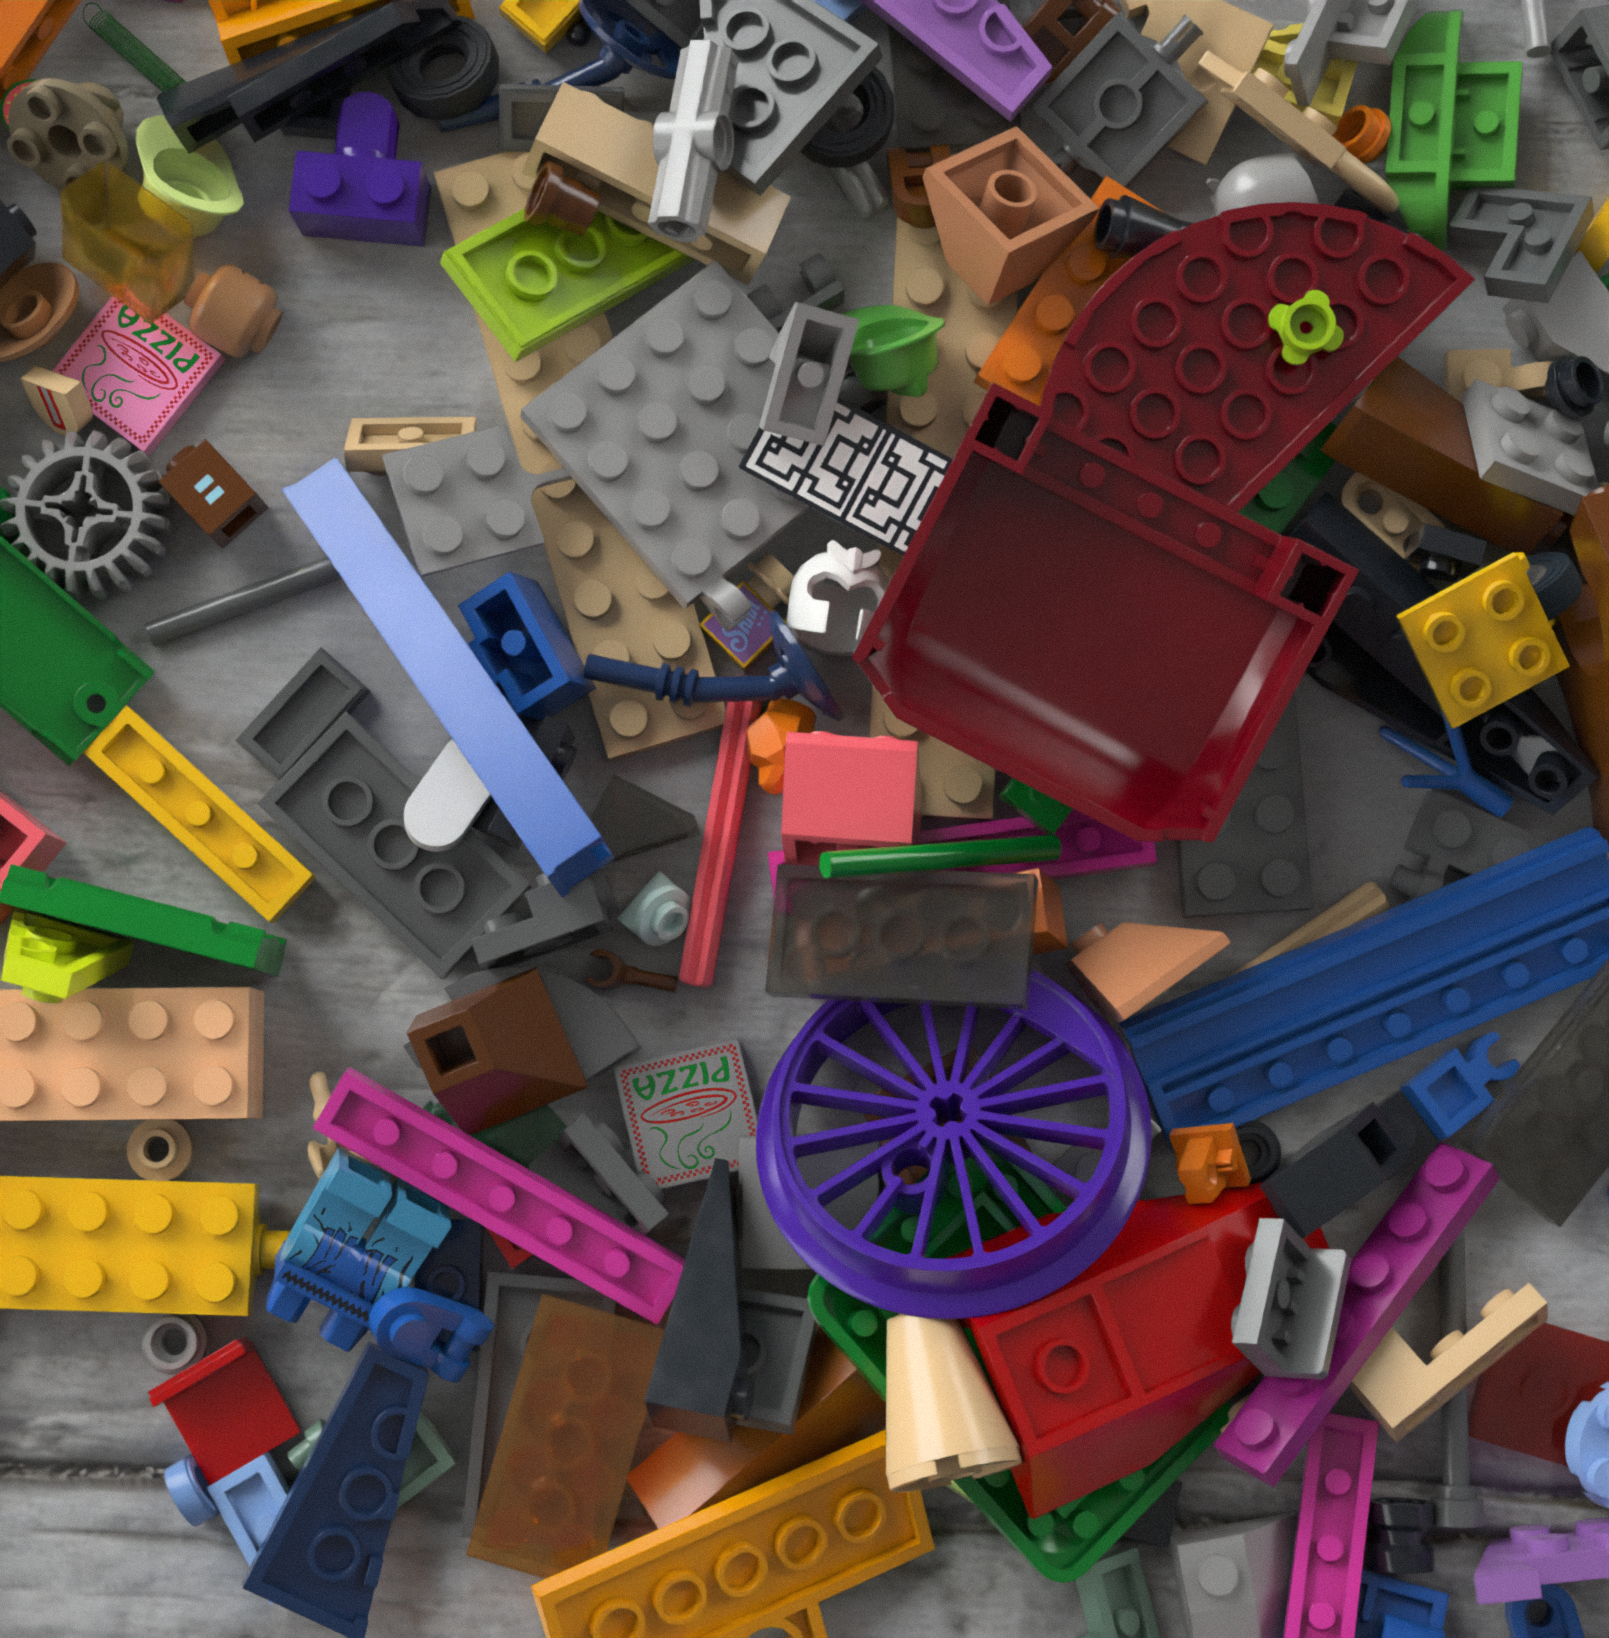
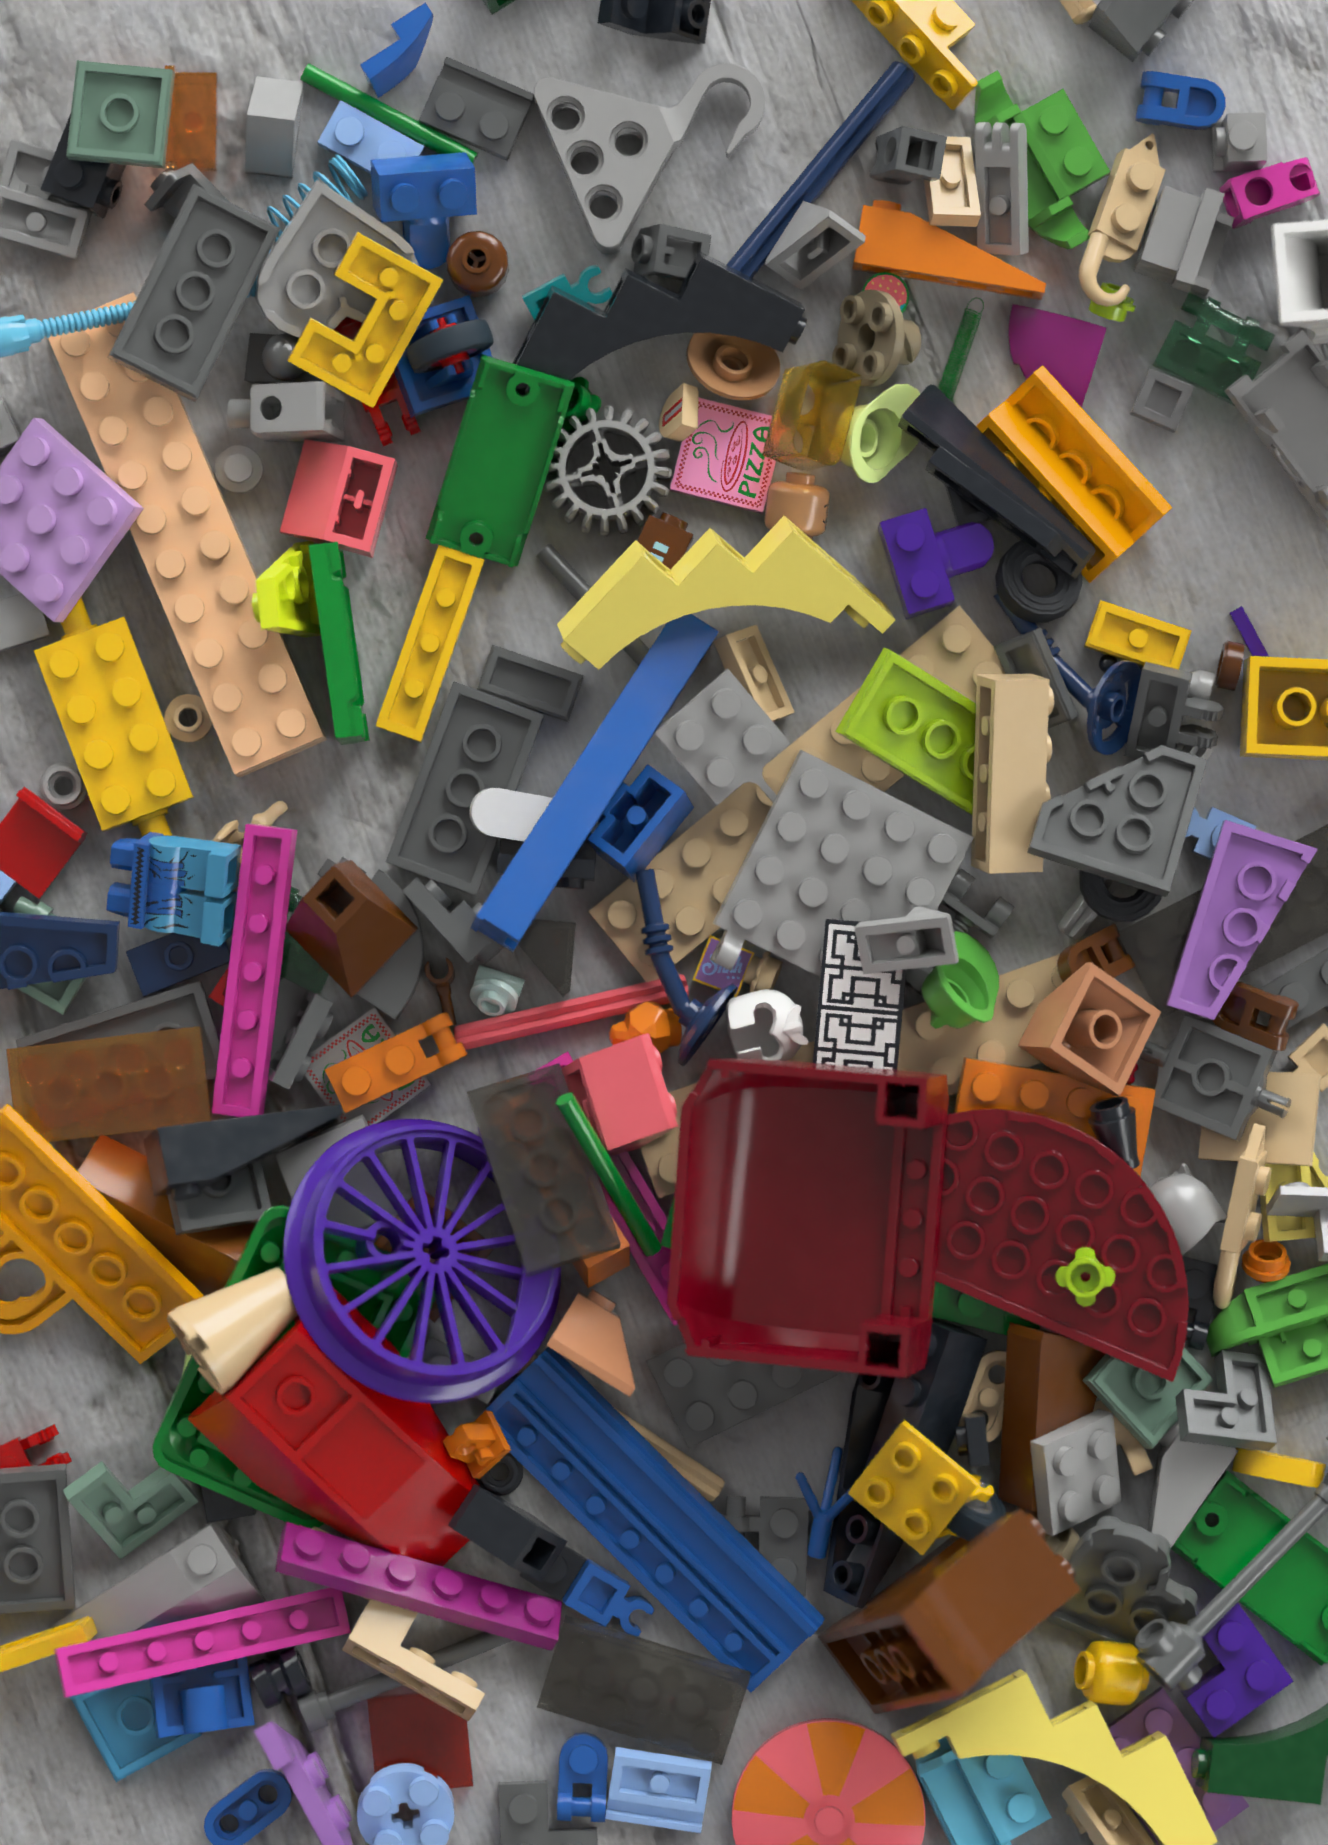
camera: 65 degrees right, 5 degrees up
(247, 519) = (778, 572): none -> light yellow arch
(410, 1320) = (145, 945): blue plate -> none
(560, 201) = (963, 713): reddish brown piece -> none
(692, 1071) = (394, 1063): none -> orange plate
(693, 141) = (1041, 791): light grey piece -> none
(1289, 1303) = (402, 1533): dark grey bracket -> none
(1468, 339) = (1143, 1399): none -> sand green tile
(1574, 386) = (1135, 1484): black plate -> none

